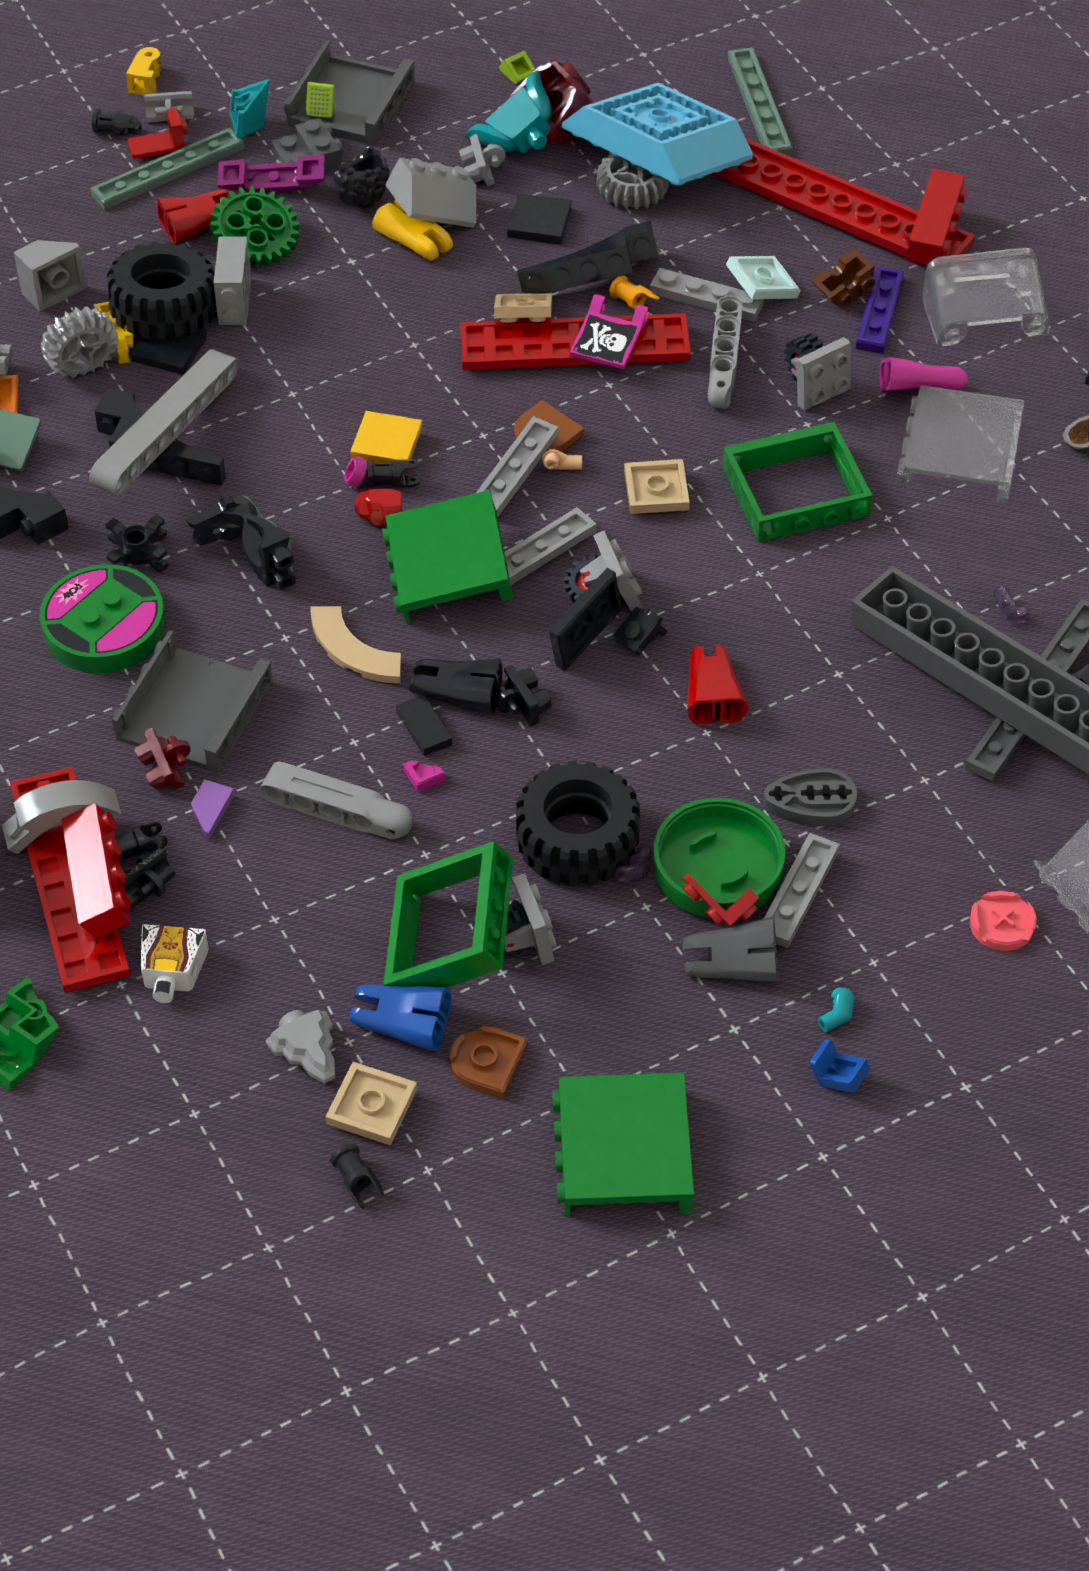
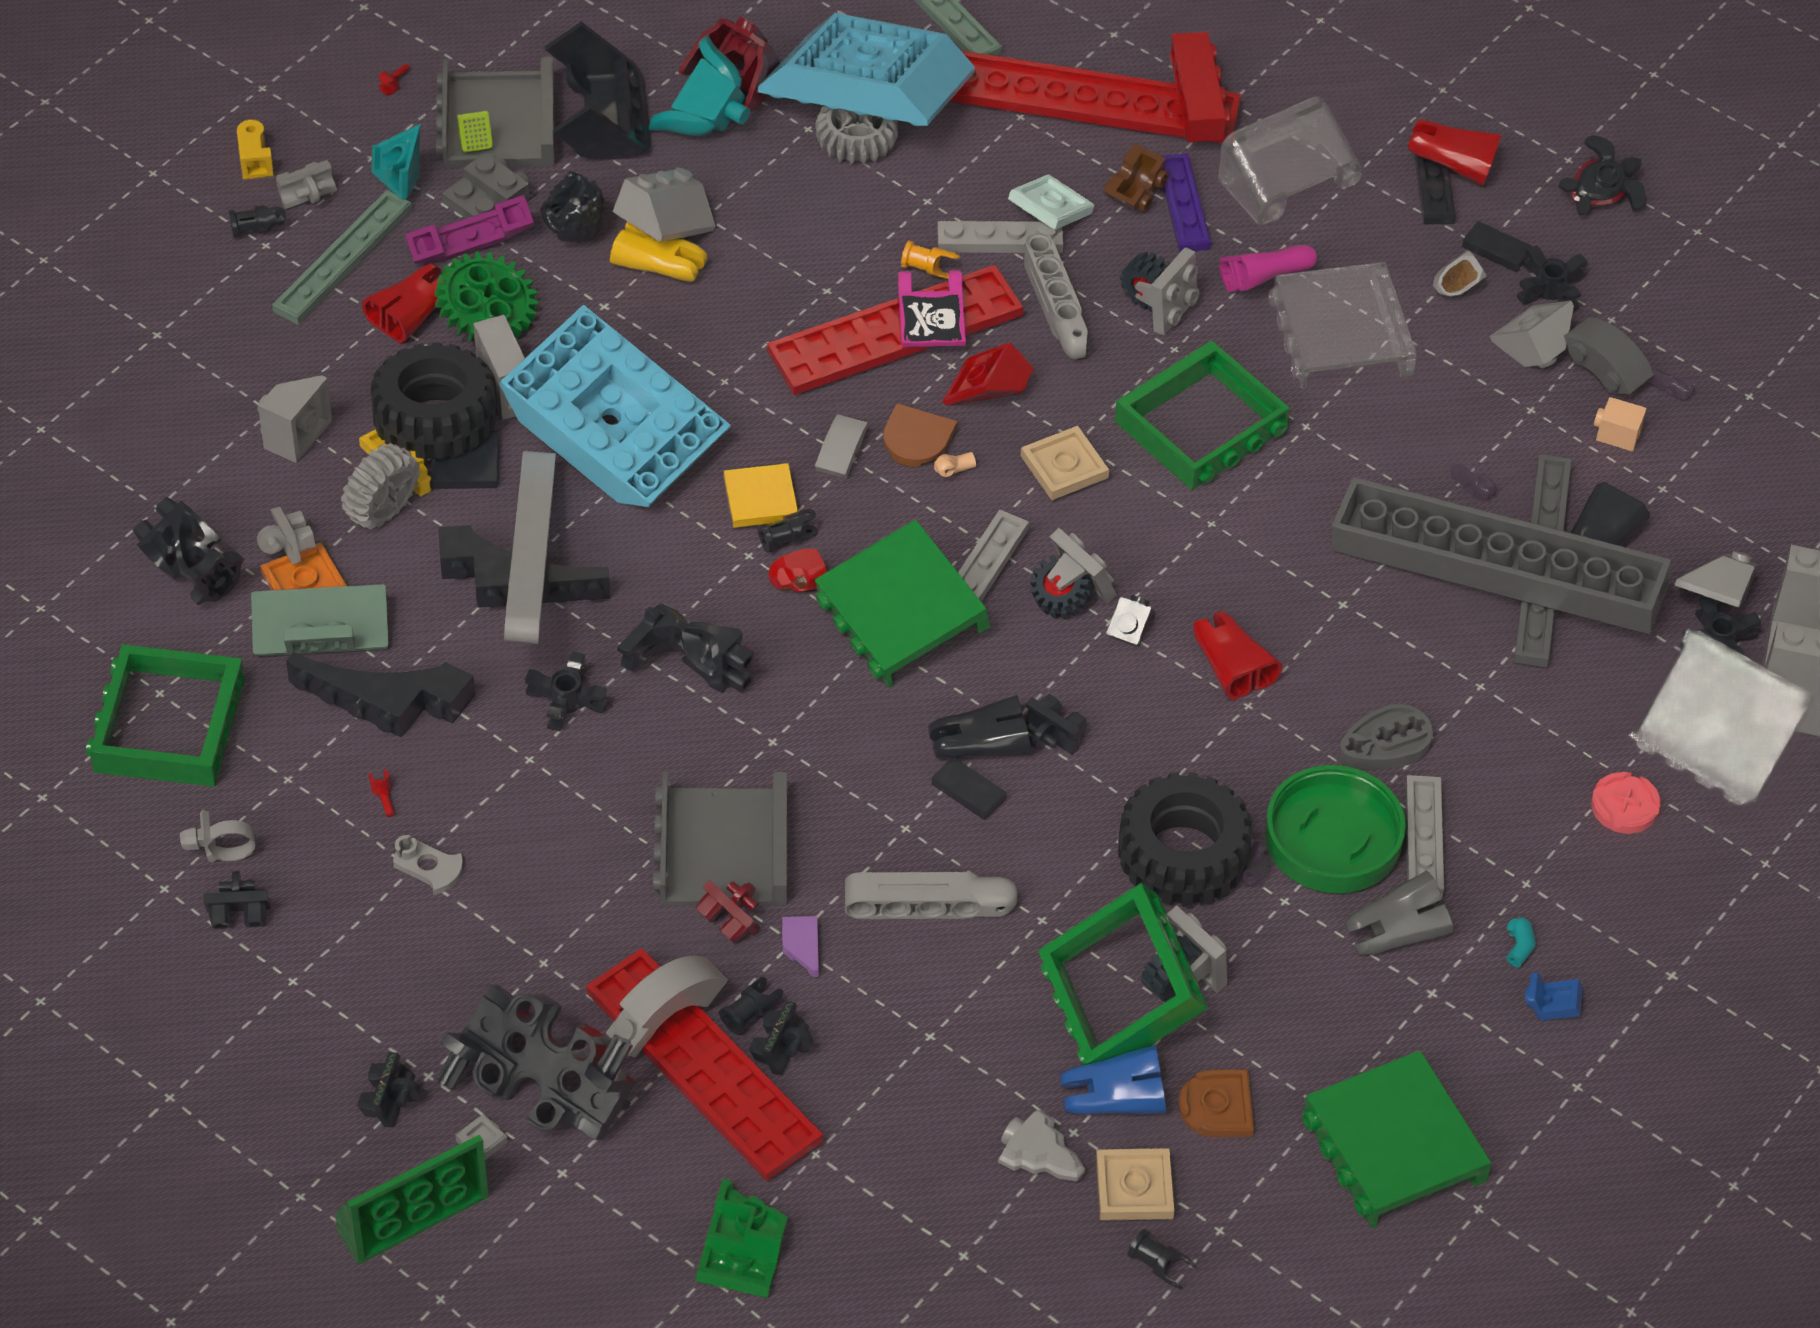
camera: 25 degrees left, 0 degrees up
(96, 870) = (741, 1045): brick -> none
(102, 618) = (575, 781): brick -> none
(161, 142) = (322, 227): red bracket -> none
(171, 959) = (856, 1110): torso -> none
(281, 50) = (389, 81): none -> red hand
(287, 303) = (596, 372): none -> medium azure slope
(351, 652) = (849, 735): tan tile -> none
(356, 471) = (749, 540): dark pink tile -> none
(423, 775) = (996, 840): dark pink tile -> none
(451, 105) = (613, 93): none -> black windscreen
(475, 418) = (841, 446): none -> light grey slope
(478, 160) = (689, 150): light grey hips -> none
(514, 306) = (825, 305): tan plate -> none
(517, 67) = (661, 33): lime slope -> none
(519, 461) = (914, 477): light grey plate -> none
(539, 218) = (779, 201): black tile -> none
(585, 619) = (1082, 627): black tile -> none
(592, 264) = (879, 233): black arch -> none
(632, 400) = (990, 376): none -> red slope
(741, 908) = (1388, 875): red bracket -> none

